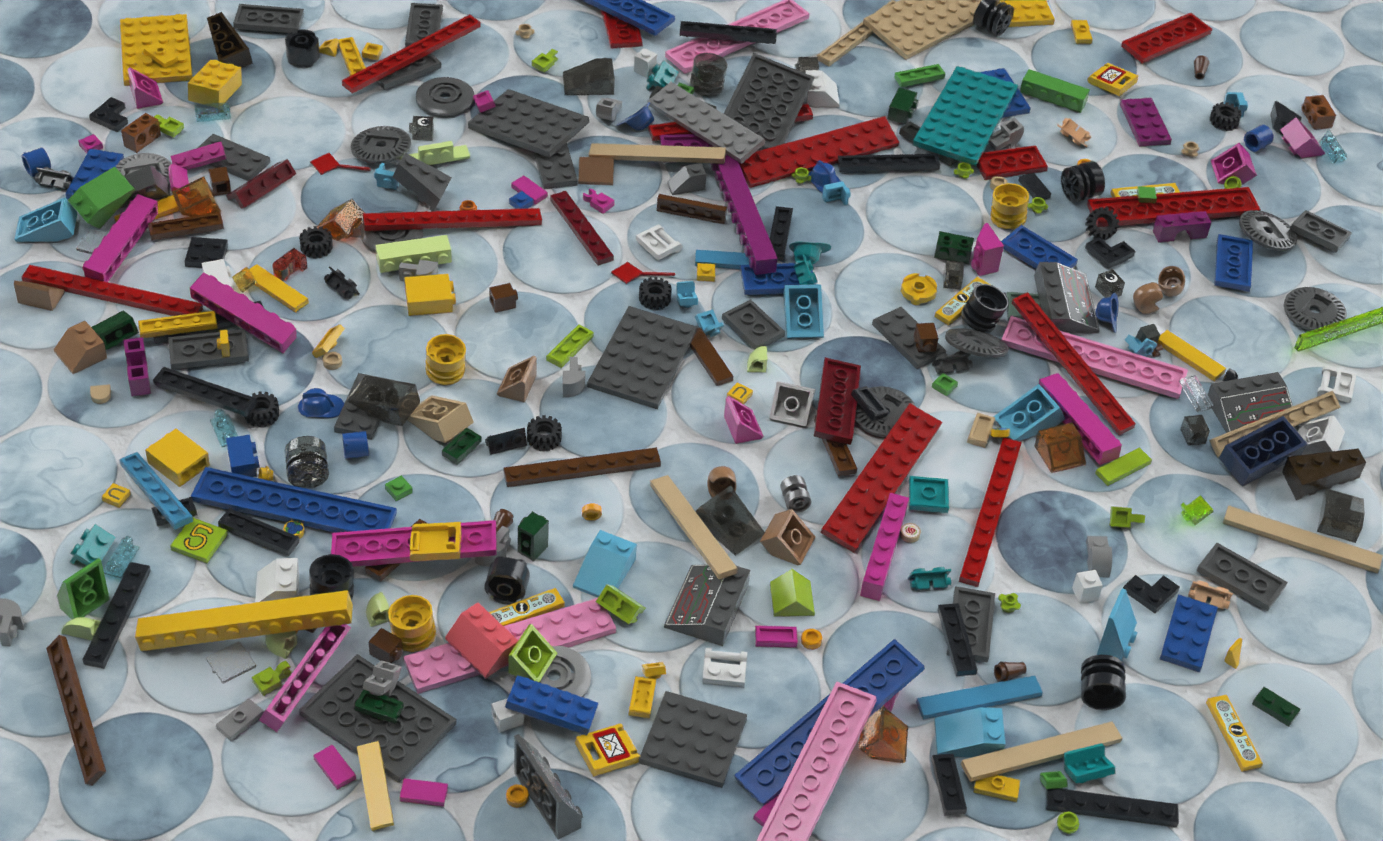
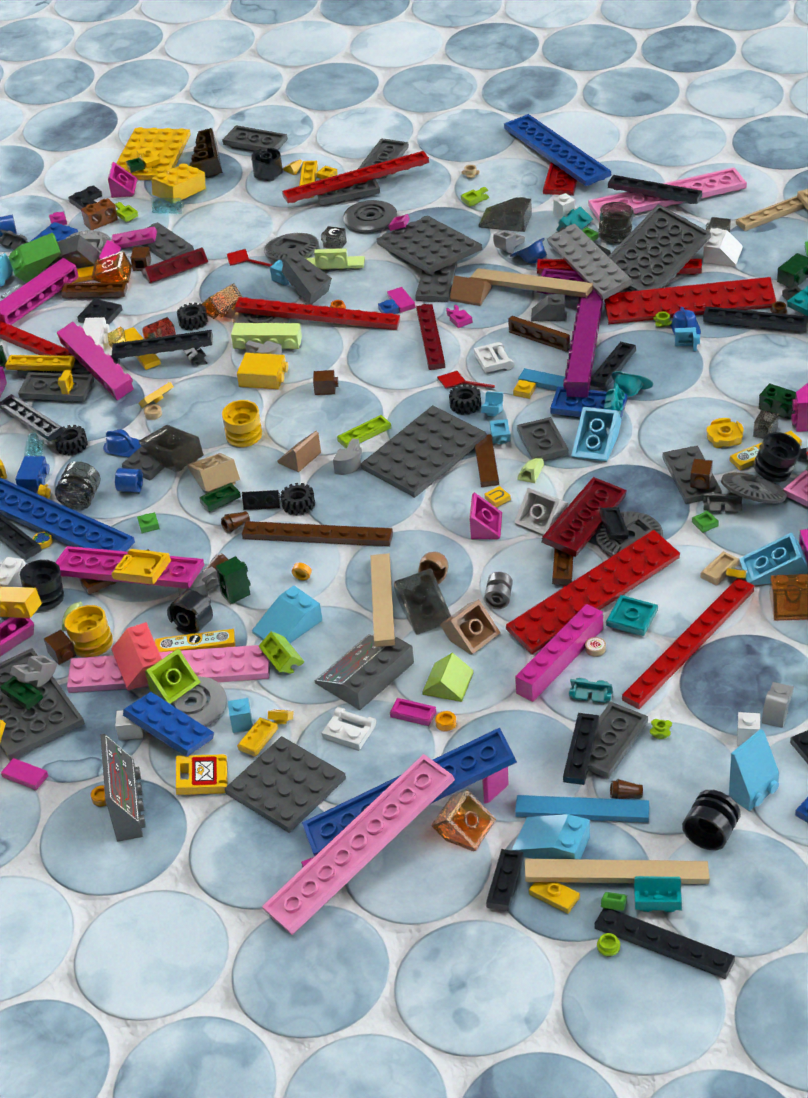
camera: 30 degrees right, 5 degrees down
(150, 66) = (135, 164): none -> dark green tile
(309, 282) = (162, 344): none -> black plate
(490, 470) = (234, 520): none -> reddish brown cone
(615, 678) = (240, 715): none -> medium azure brick
(904, 147) = (779, 307): none -> reddish brown plate

